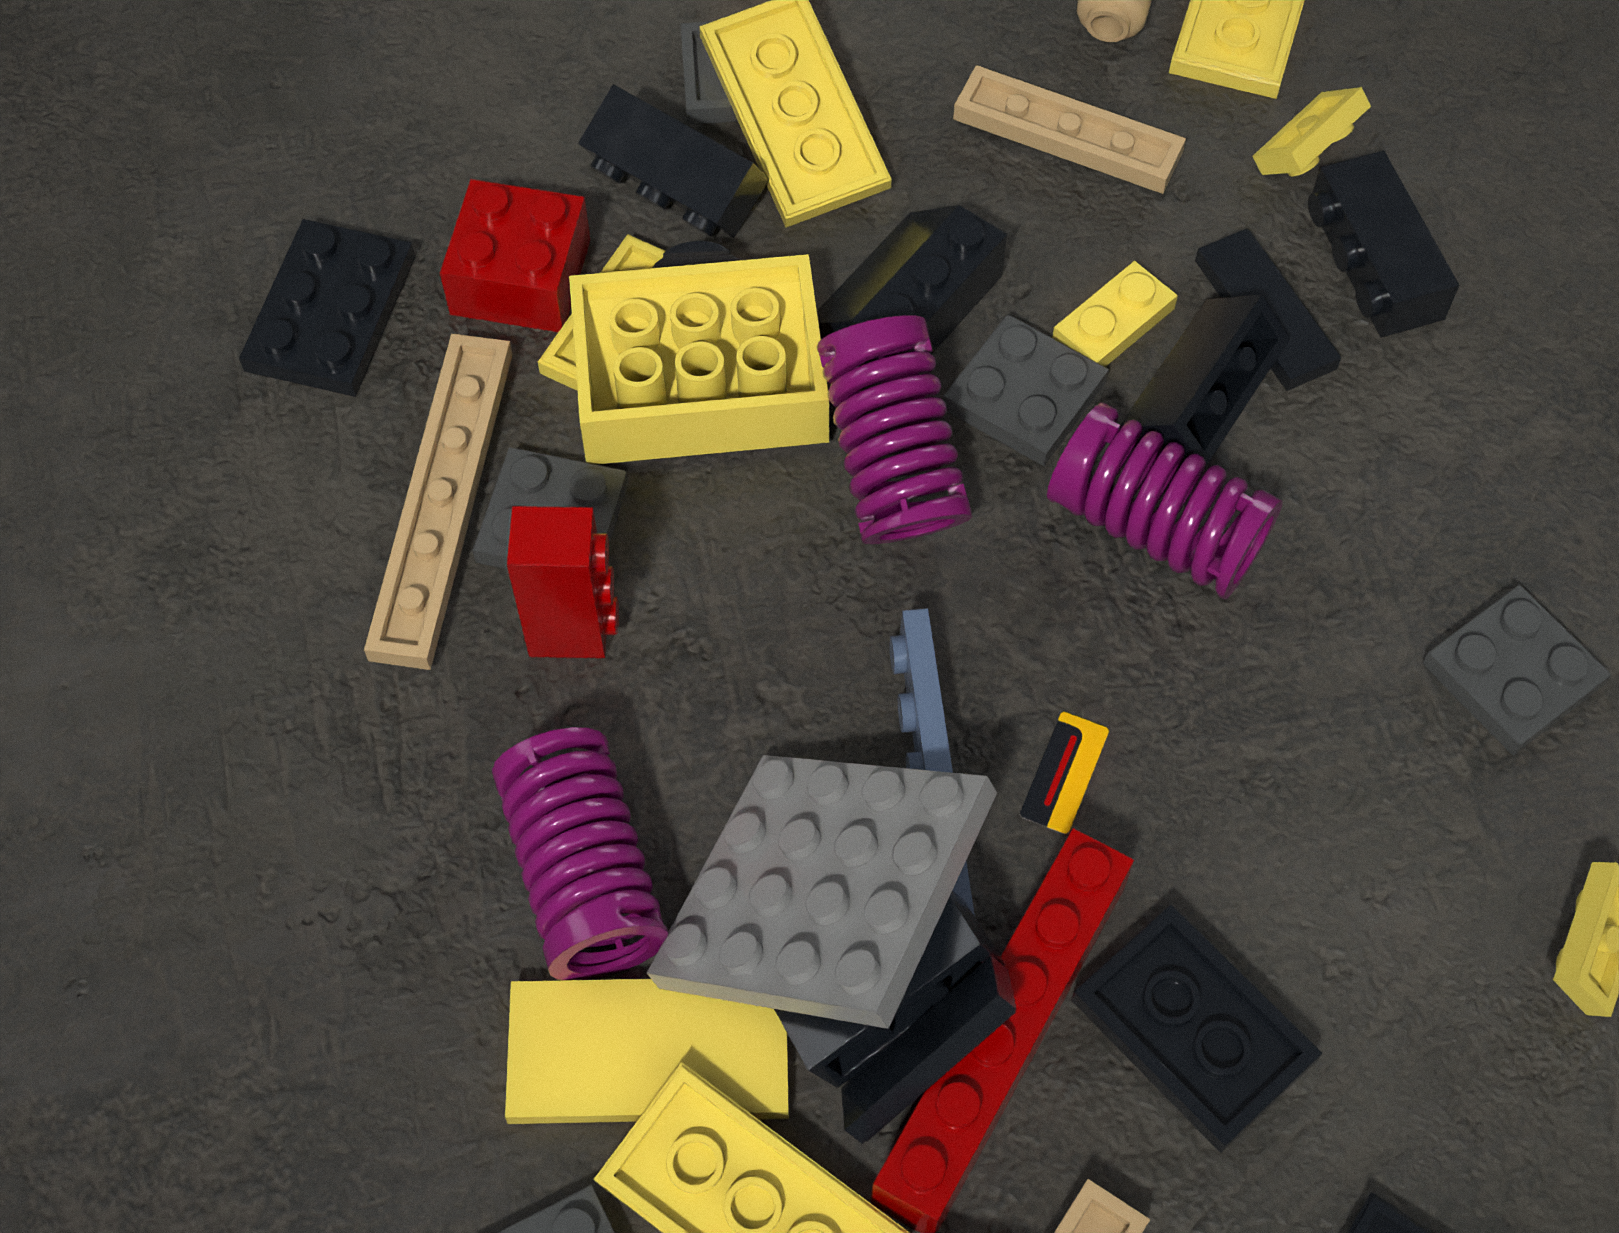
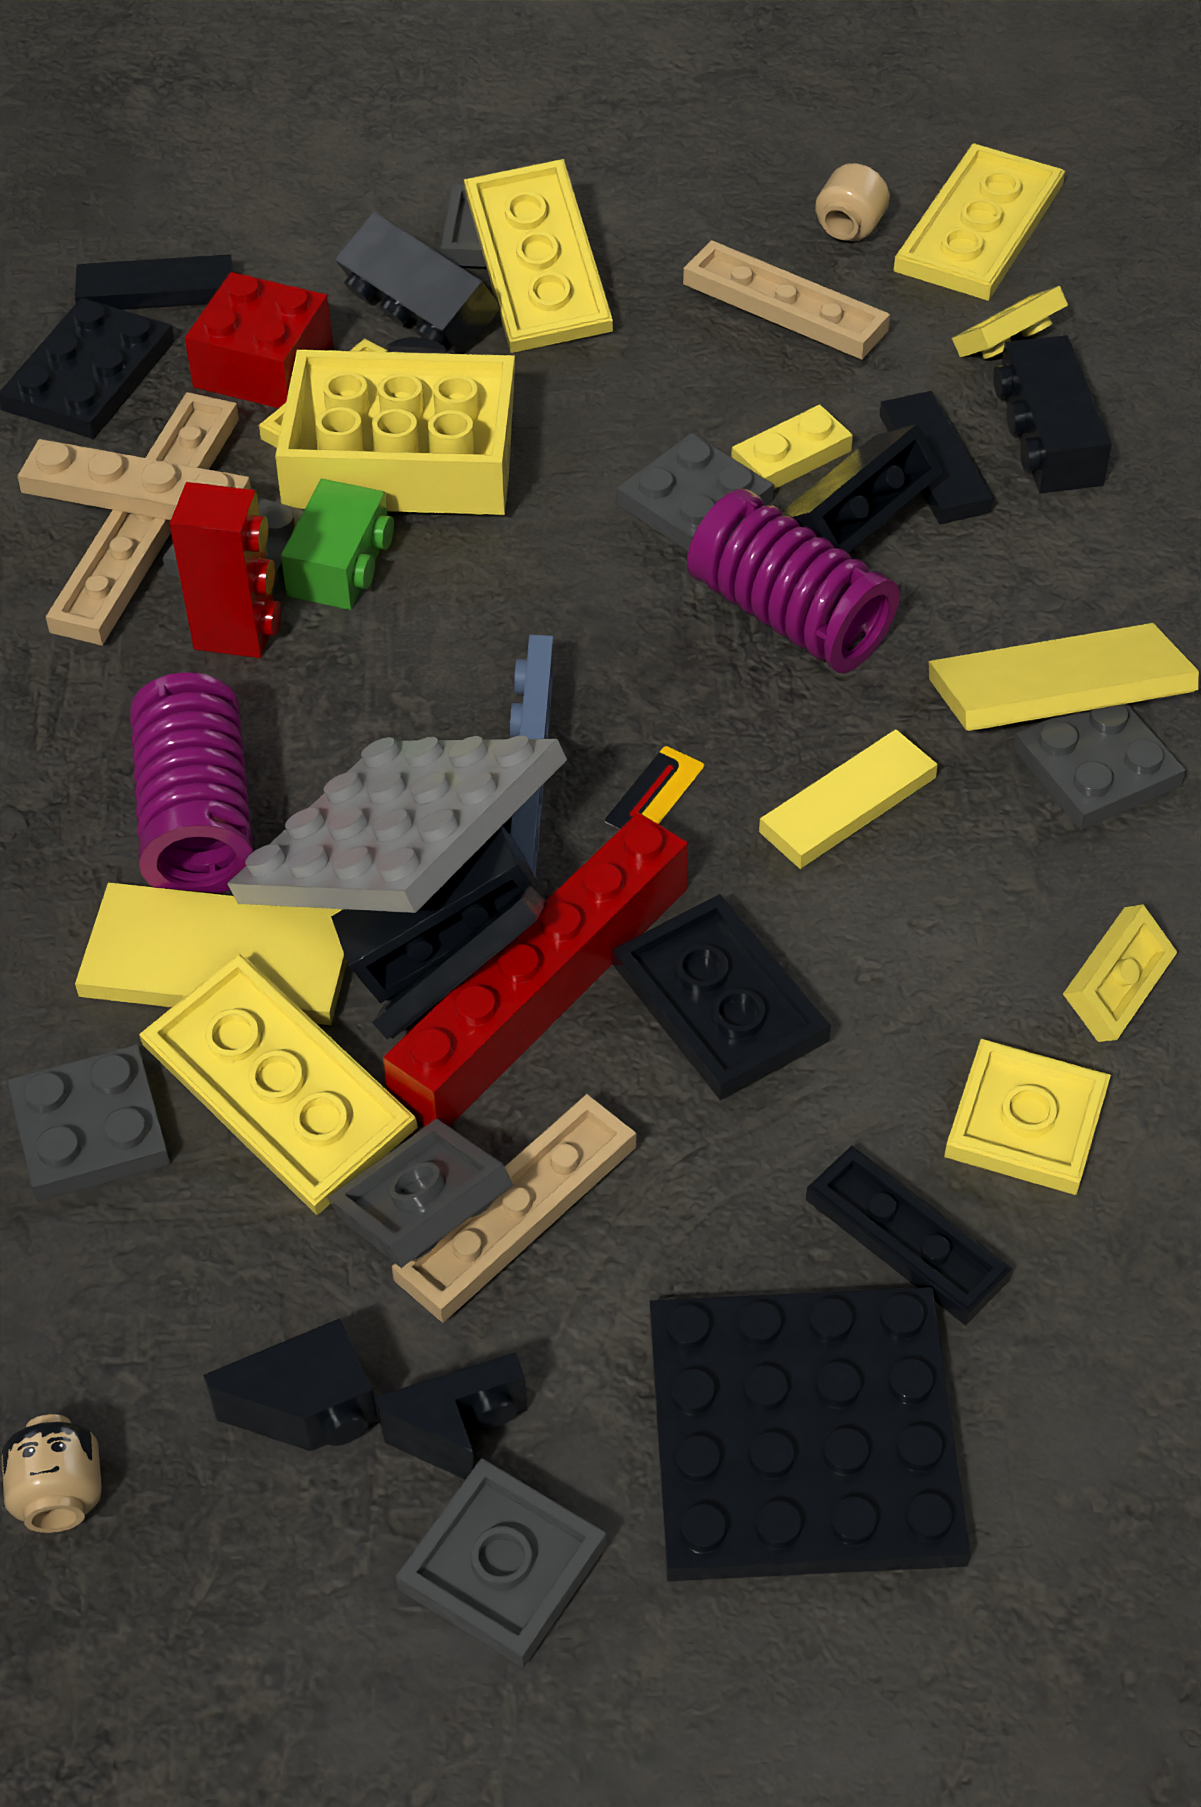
camera: 10 degrees right, 10 degrees down
(378, 185) = (153, 281): none -> black tile
(424, 467) = (113, 479): none -> tan plate
(660, 510) = (336, 544): none -> bright green brick
(907, 415) = (554, 492): magenta piece -> none
(927, 267) = (612, 409): black slope -> none
(1270, 755) = (847, 798): none -> light yellow tile
(1463, 577) = (1062, 676): none -> light yellow tile
(1539, 1123) = (1027, 1116): none -> light yellow tile

